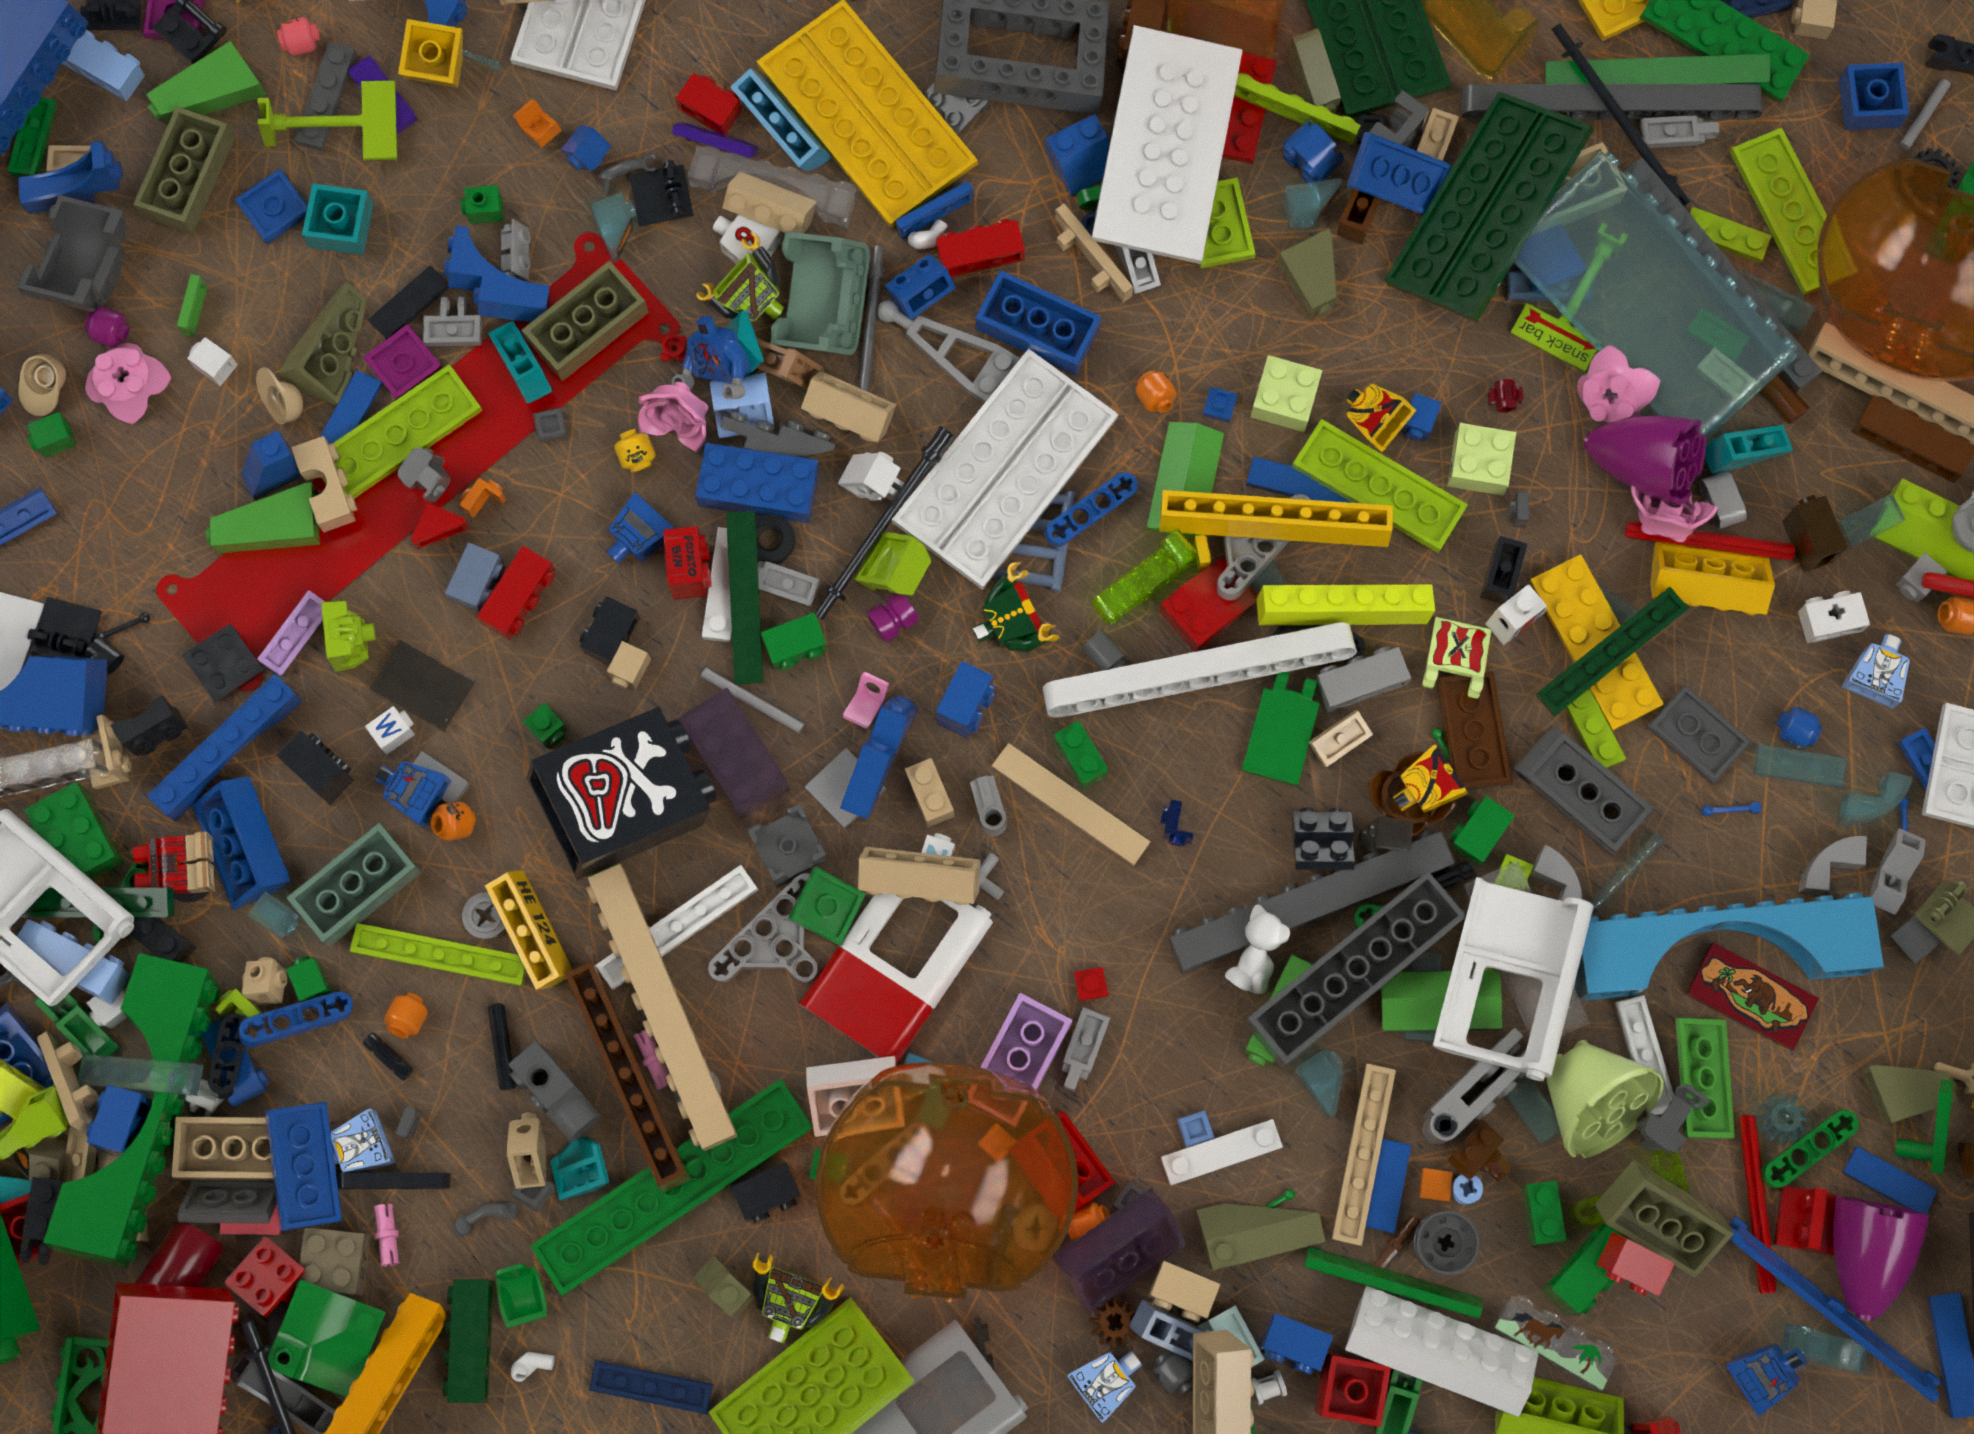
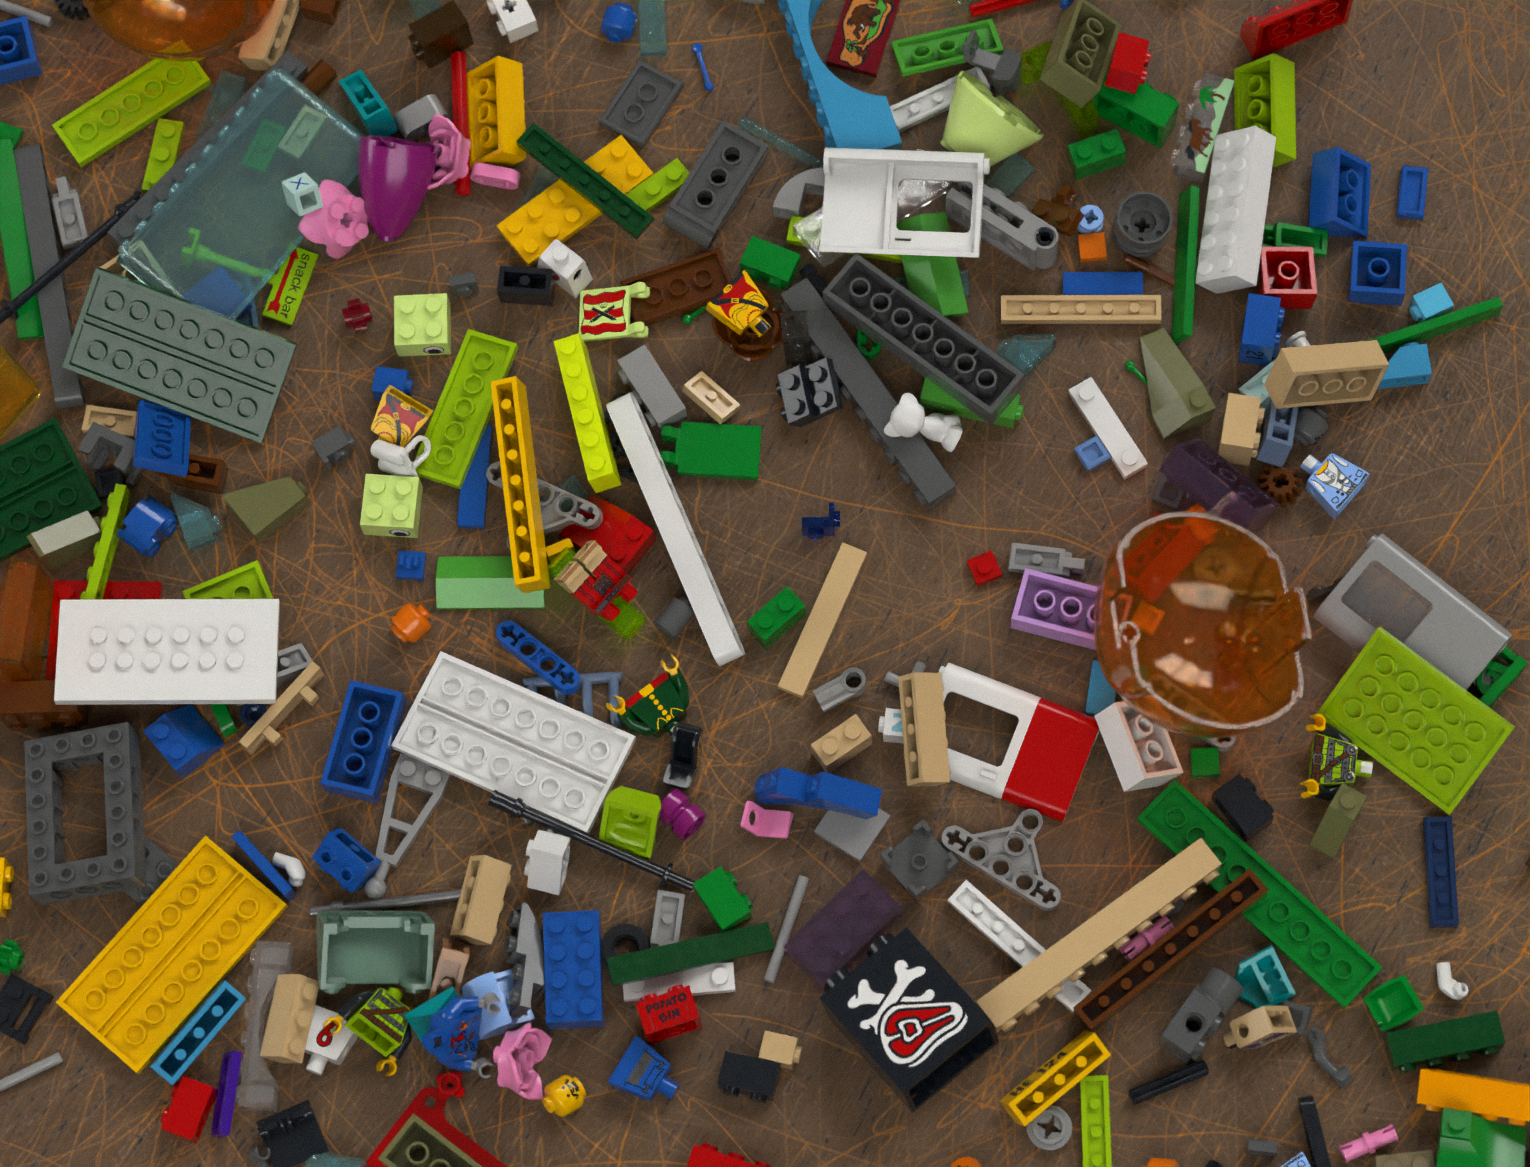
camera: 95 degrees left, 5 degrees down
(546, 726) = (854, 1116): green bracket -> none
(826, 906) = (968, 813): green tile -> none
(948, 632) = (684, 756): none -> black animal
(965, 699) = (748, 727): blue brick -> none
(981, 248) = (294, 813): red brick -> none
(1151, 573) = (596, 581): none -> hips
(1332, 405) = (396, 459): none -> white piece
(1362, 348) = (333, 447): none -> dark grey brick
(1639, 564) = (495, 176): none -> bright pink beam
(1642, 349) = (302, 194): none -> light aqua brick

